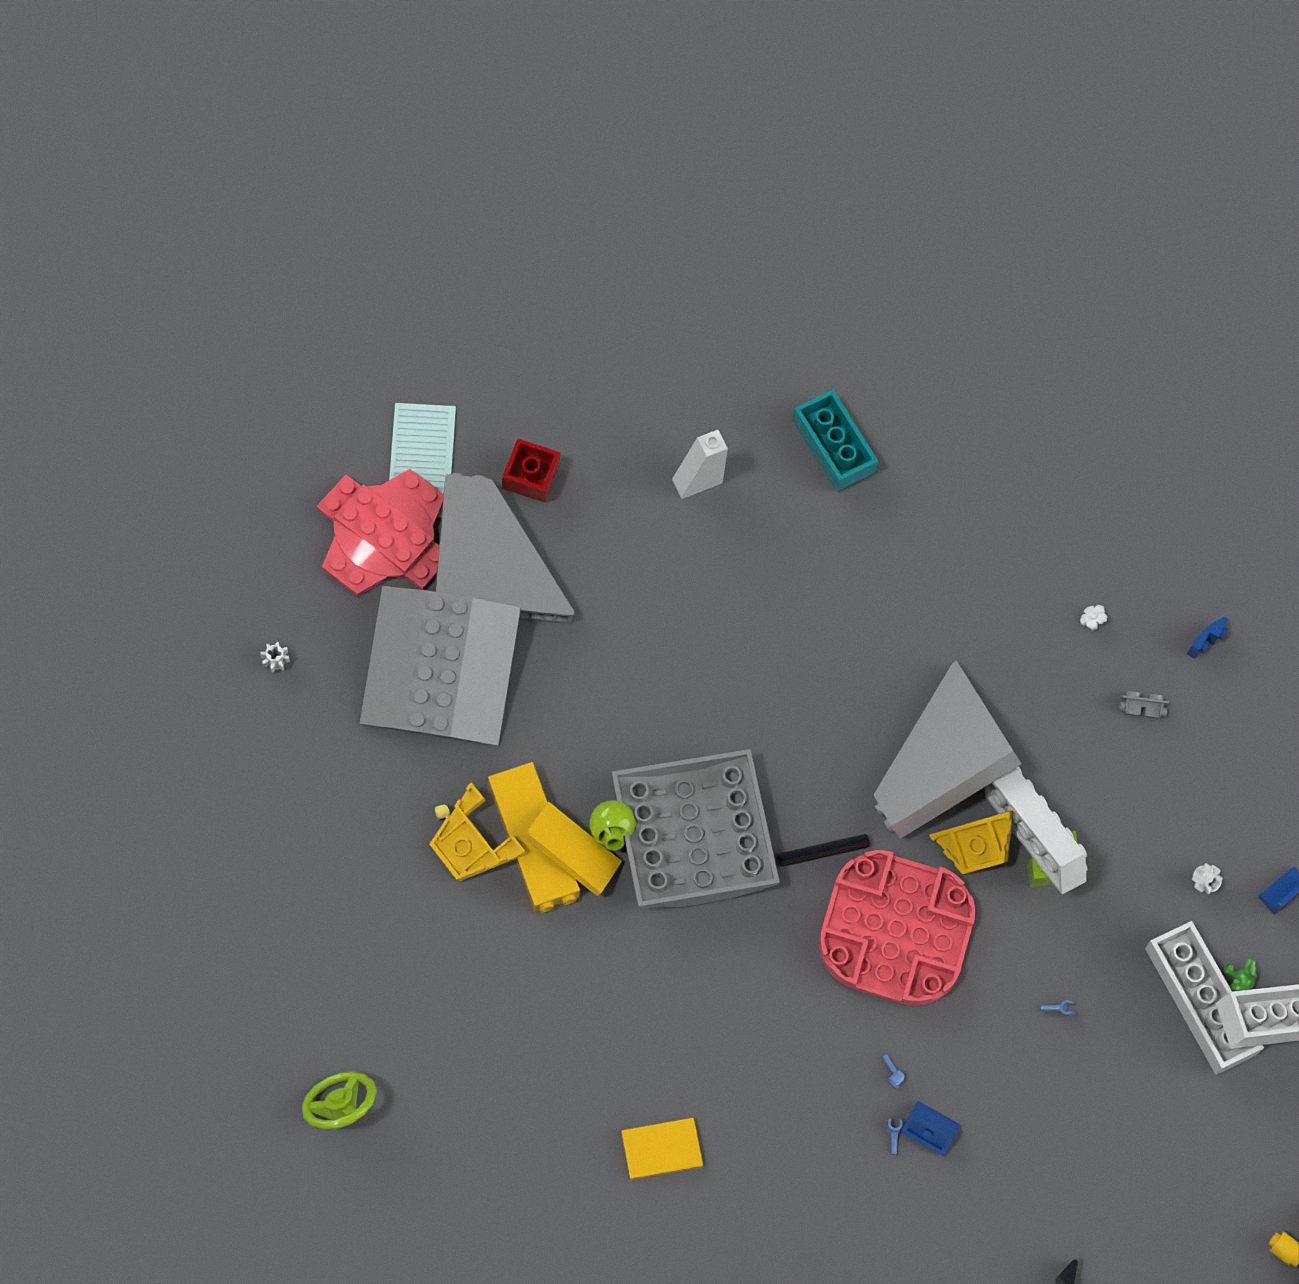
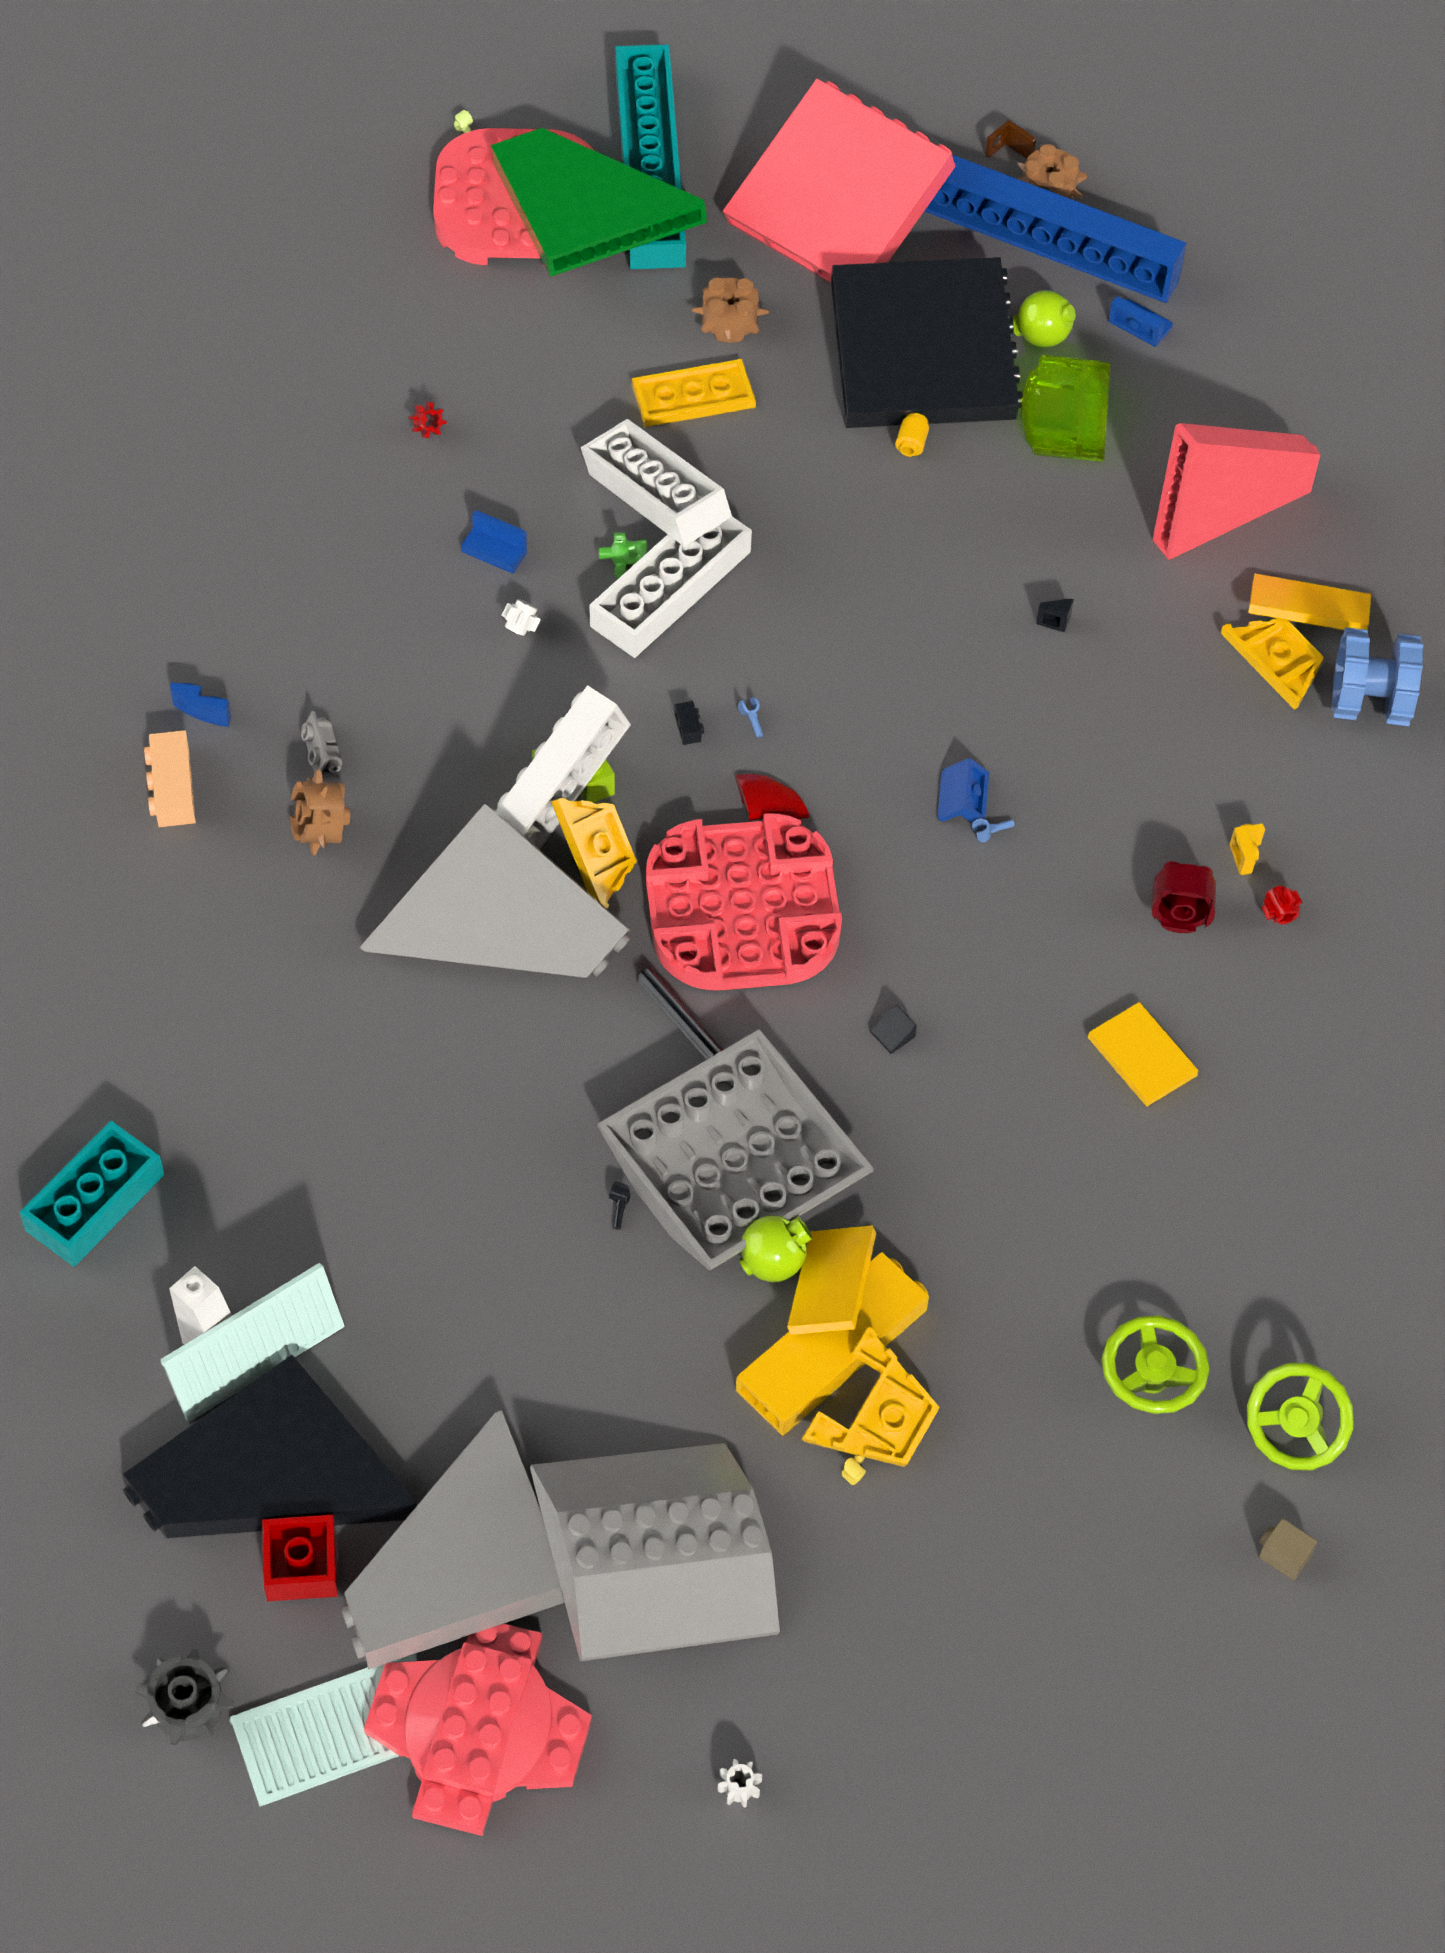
camera: 110 degrees left, 10 degrees down
(259, 1050) = (1287, 1548): none -> dark tan brick
(420, 1027) = (1156, 1365): none -> lime piece
(473, 380) = (198, 1683): none -> dark grey brick
(604, 479) = (266, 1456): none -> black slope
(682, 489) = (253, 1342): none -> light aqua window
(701, 753) = (620, 1194): none -> black hand
(752, 986) = (894, 1029): none -> black slope
(770, 1235) = (1184, 897): none -> dark red brick
(897, 1078) = (923, 845): medium blue hand -> none
(981, 987) = (768, 796): none -> red brick
(1070, 960) = (688, 723): none -> black piece
(1077, 672) = (319, 812): none -> medium nougat brick
(1093, 616) = (224, 830): white plant -> none
(1149, 597) = (170, 779): none -> light nougat brick

